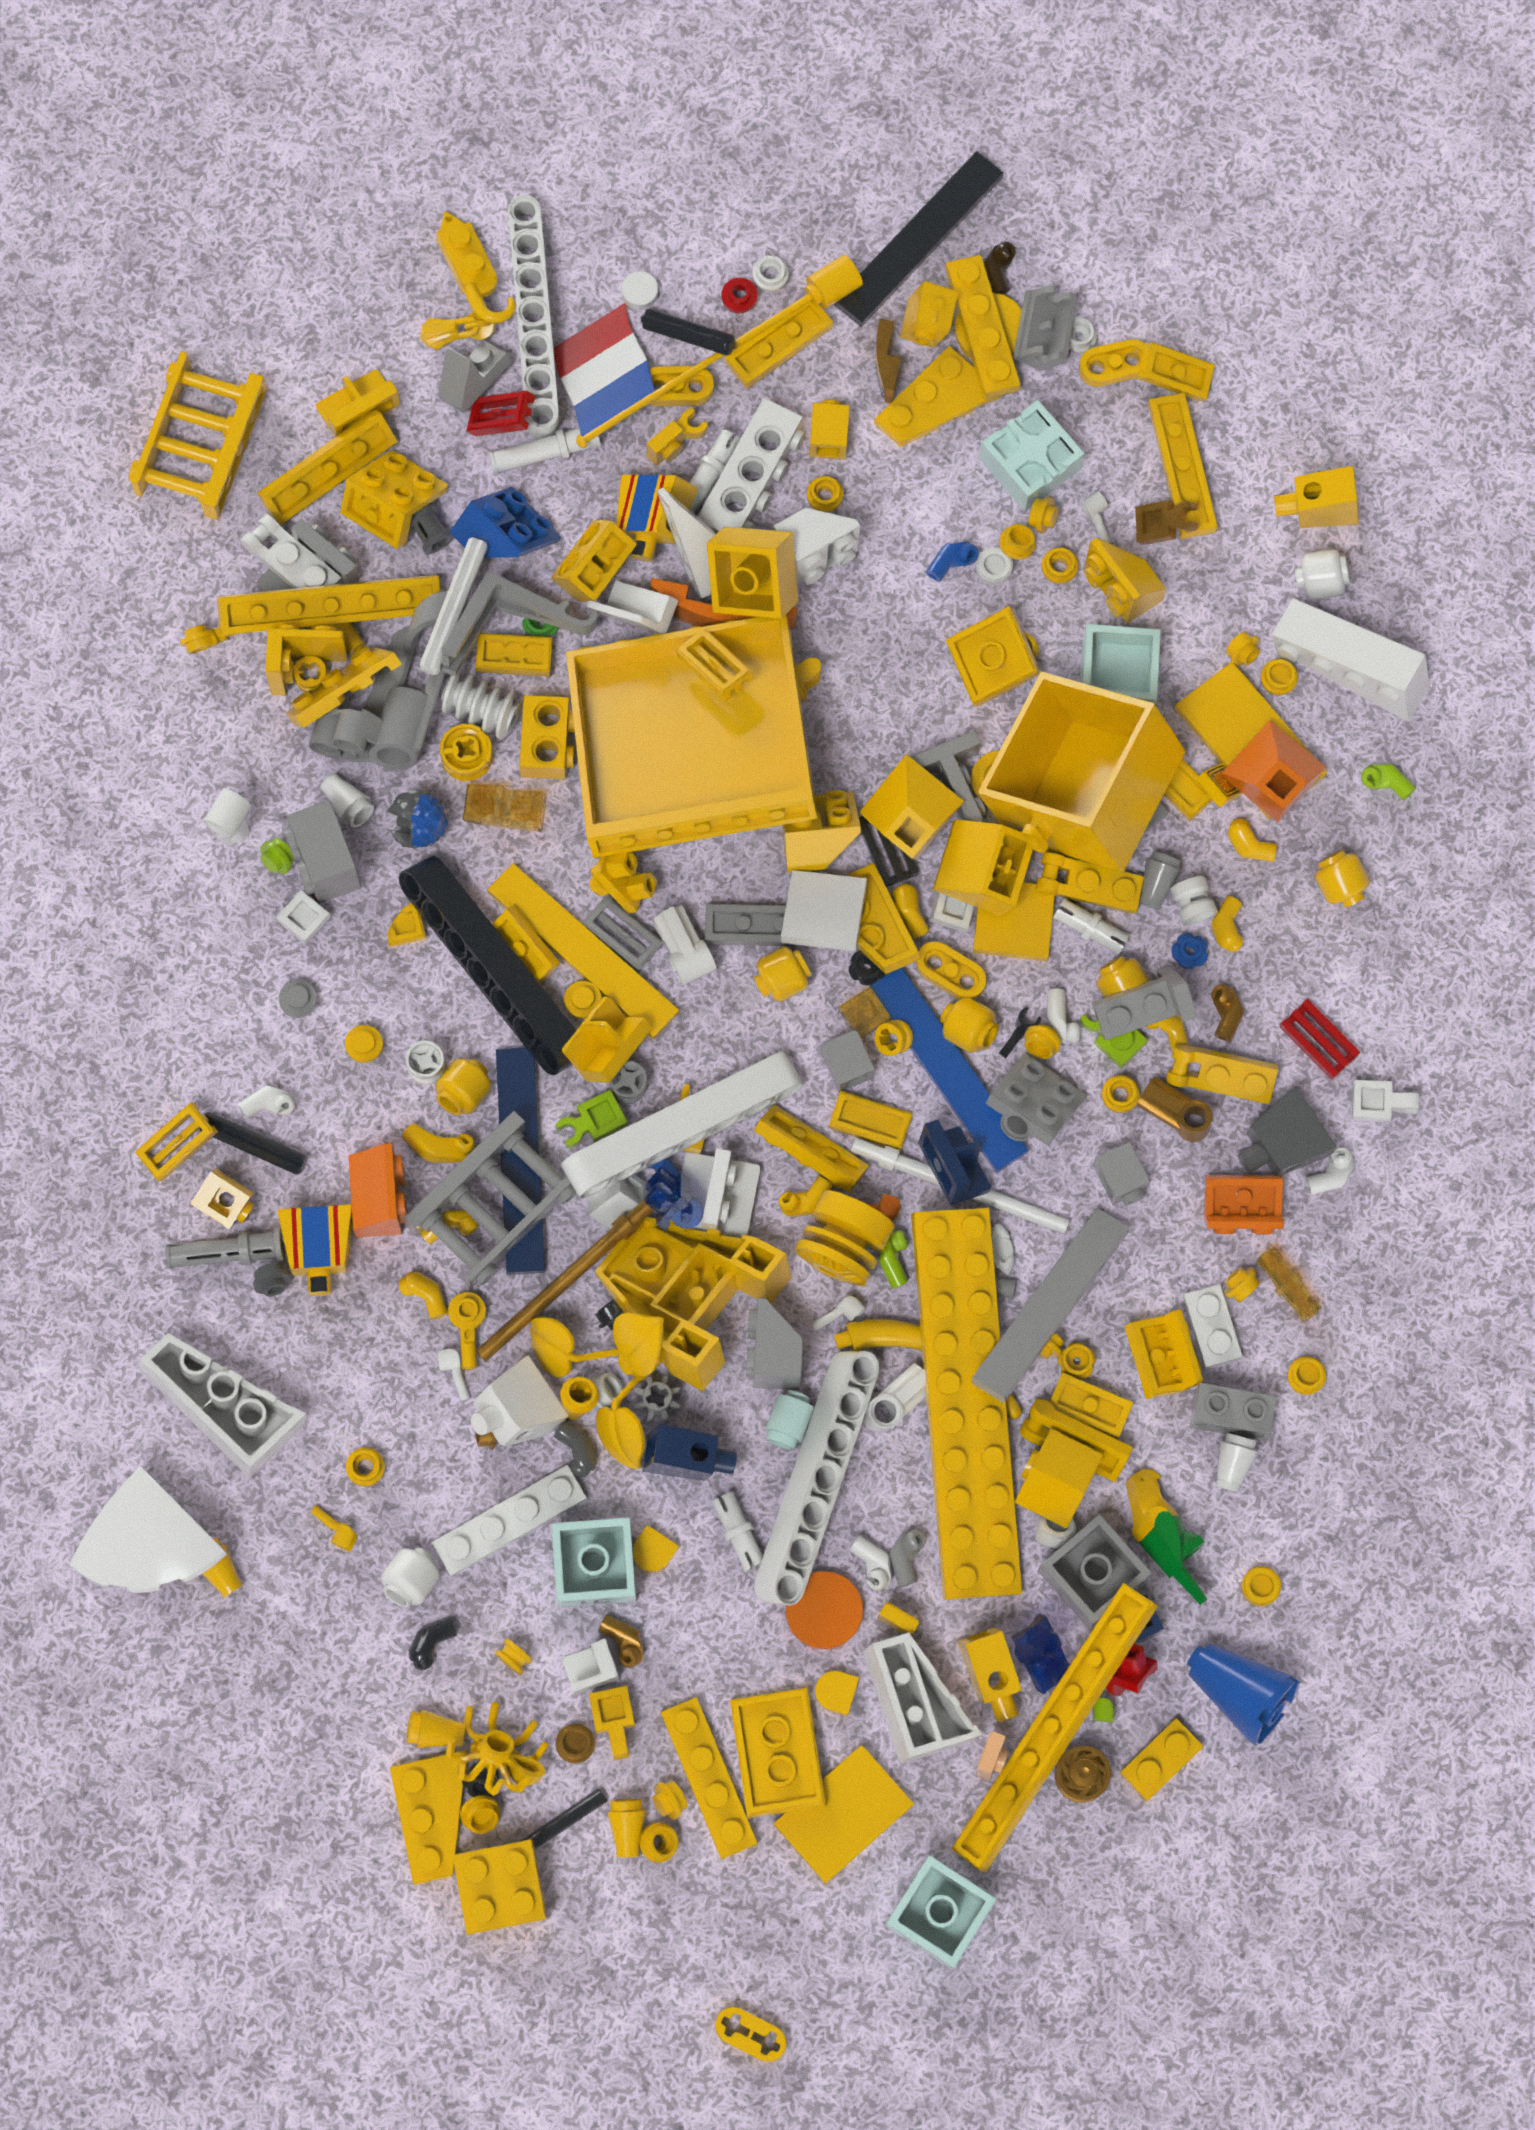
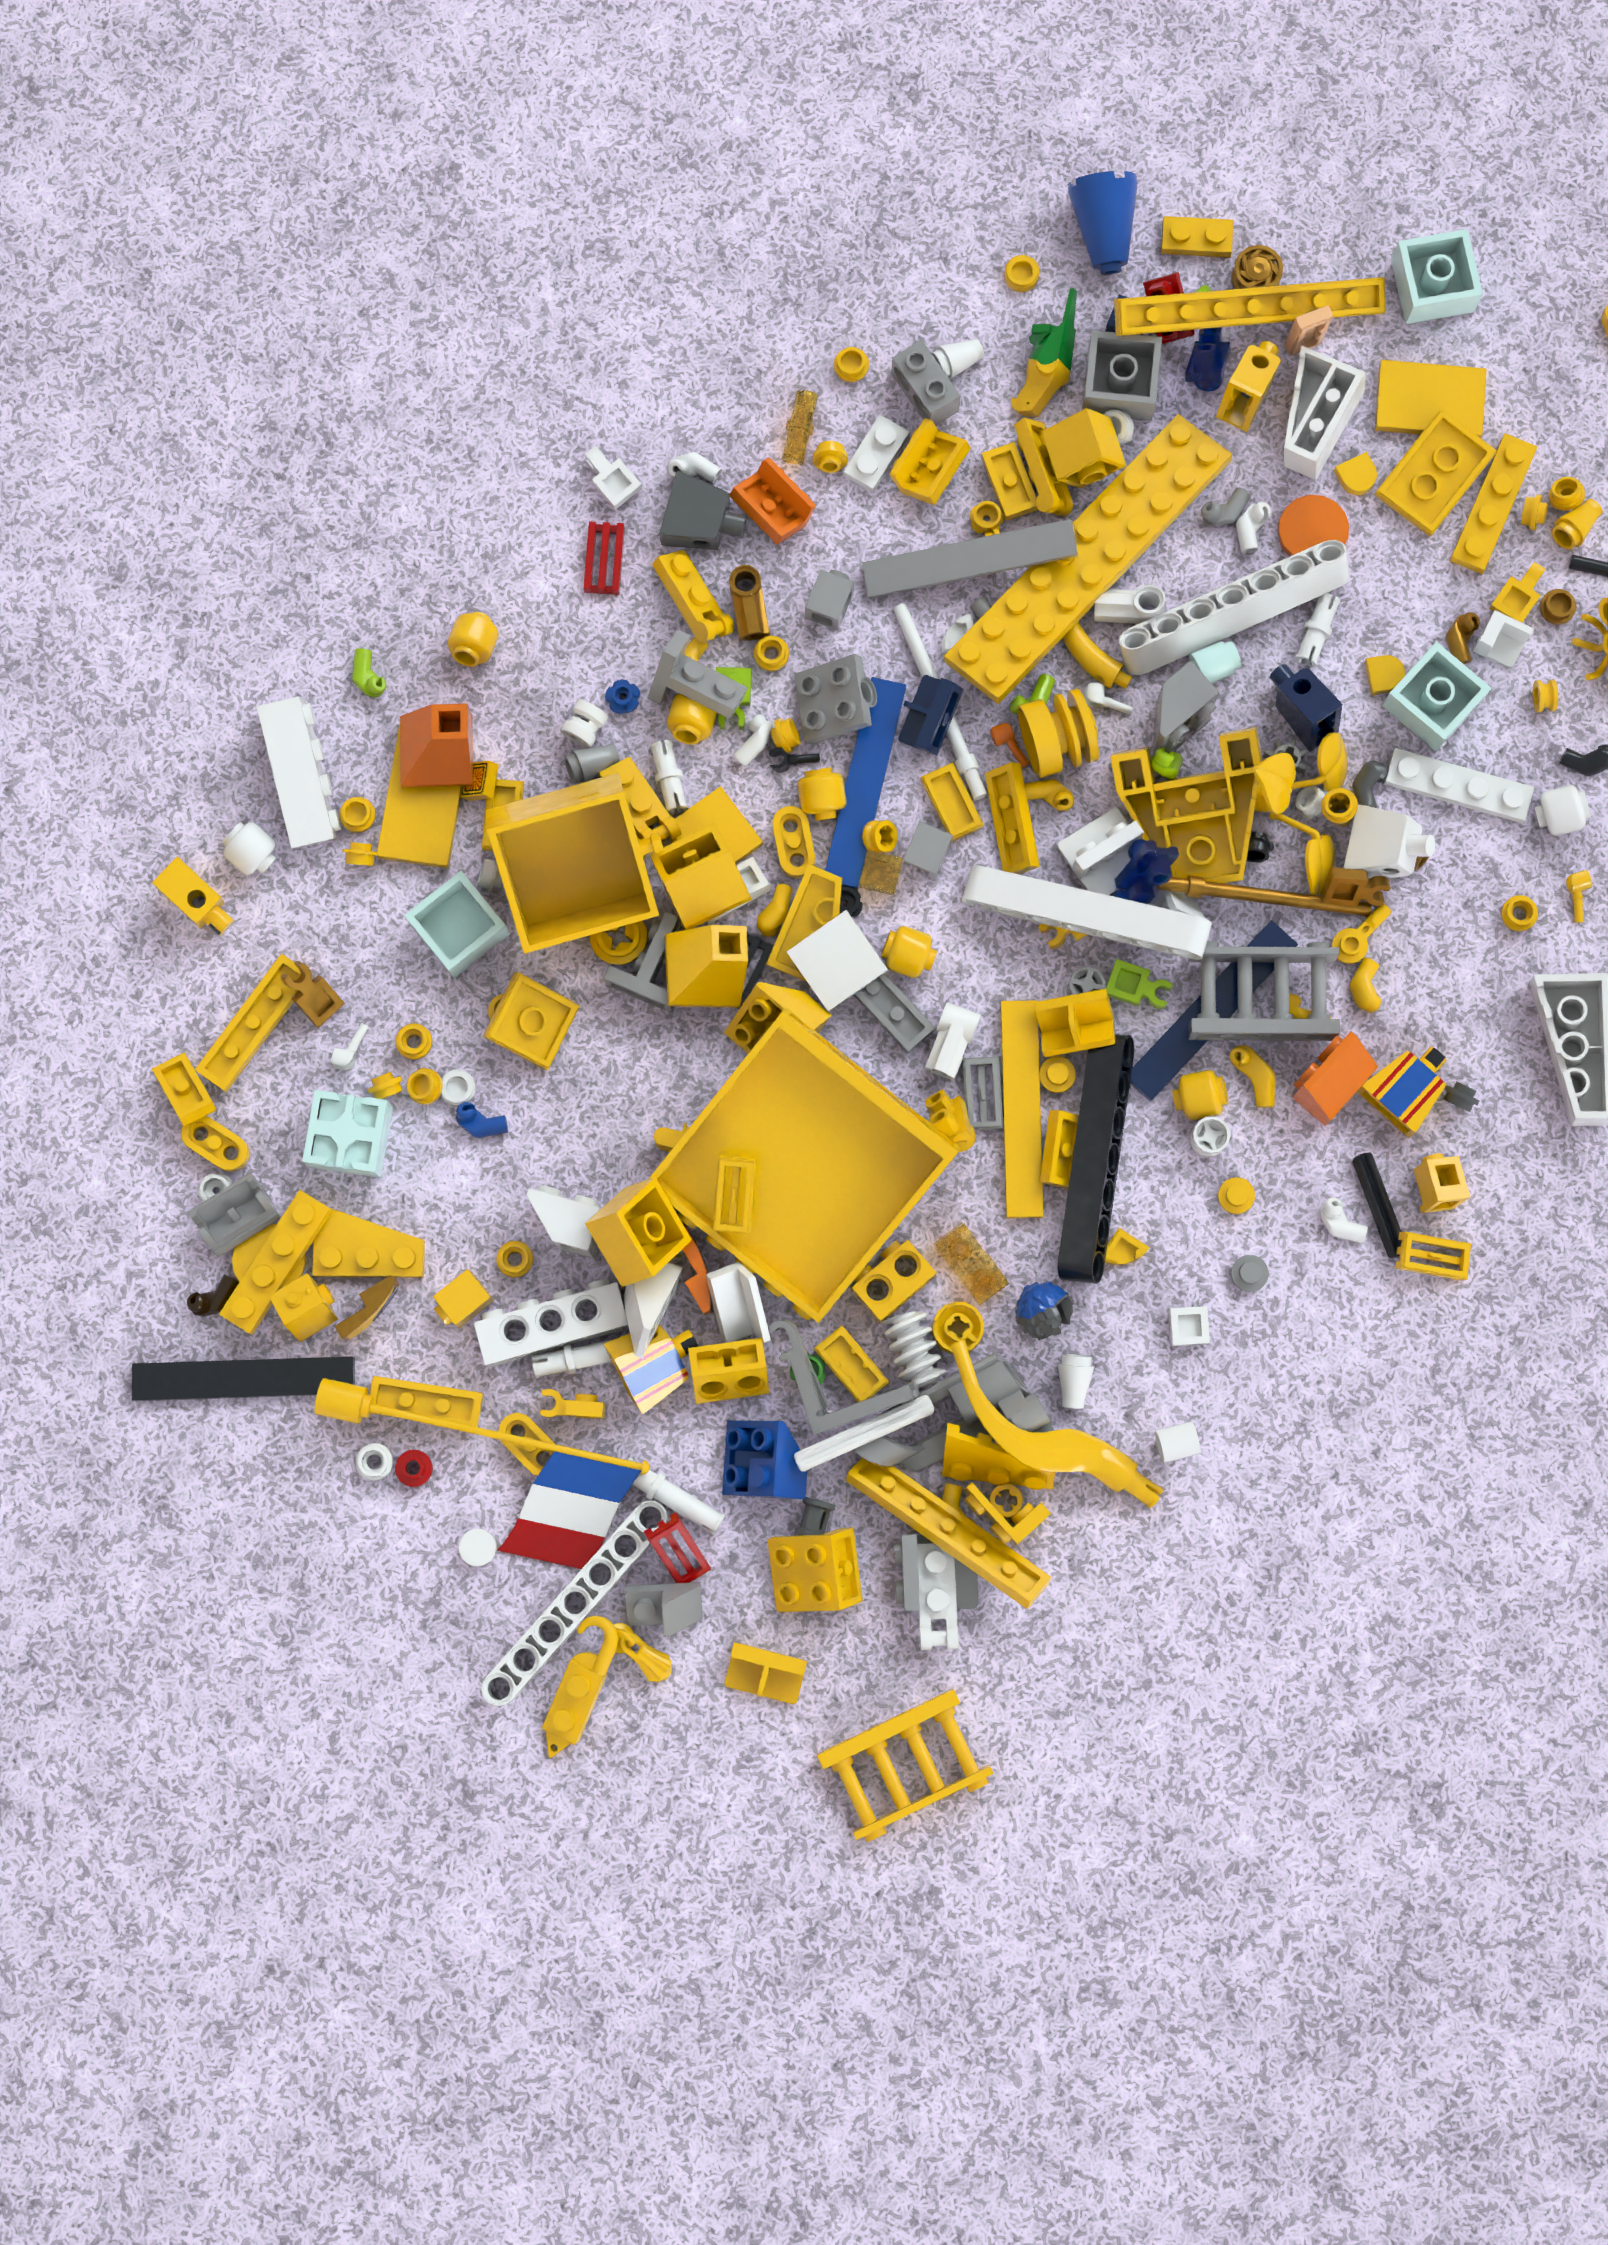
camera: 125 degrees left, 5 degrees up
(200, 638) = (1058, 1605): yellow plate -> none
(245, 1248) = (1458, 1137): light grey pin -> none
(276, 856) = (1164, 1388): lime plate -> none
(307, 727) = (1058, 1449): none -> yellow animal
(325, 857) = (1135, 1350): light grey brick -> none
(327, 467) = (838, 1642): yellow plate -> none
(450, 1360) = (1393, 925): white hand -> none
(510, 1345) = (1350, 885): none -> pearl gold plate
(688, 332) = (482, 1472): black axle -> none
(737, 1301) = (1166, 764): none -> lime arm
(898, 1619) = (1274, 473): yellow tile -> none
(1124, 579) = (385, 974): yellow slope -> none
(1224, 926) = (584, 688): yellow arm -> none
(1230, 1011) = (641, 632): pearl gold arm -> none
(1247, 844) = (506, 727): yellow arm -> none

